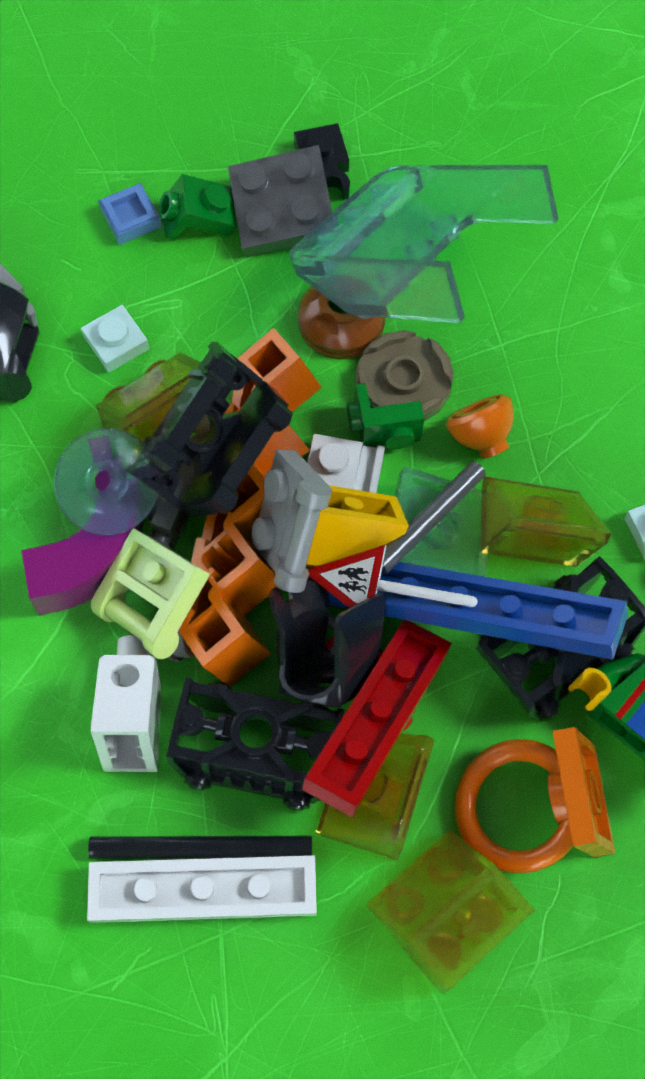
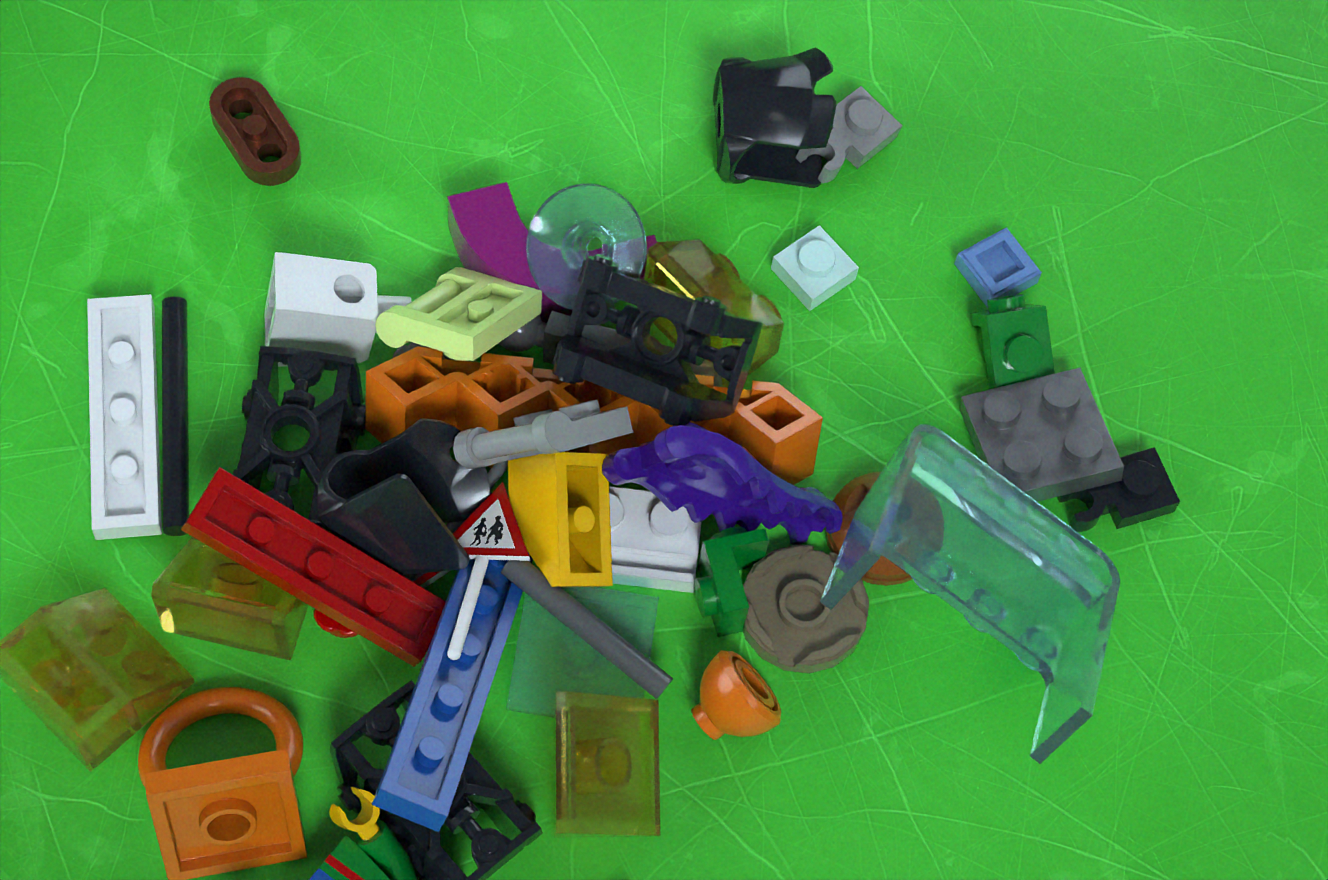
camera: 80 degrees right, 5 degrees down
(323, 403) = (722, 479): none -> dark purple animal

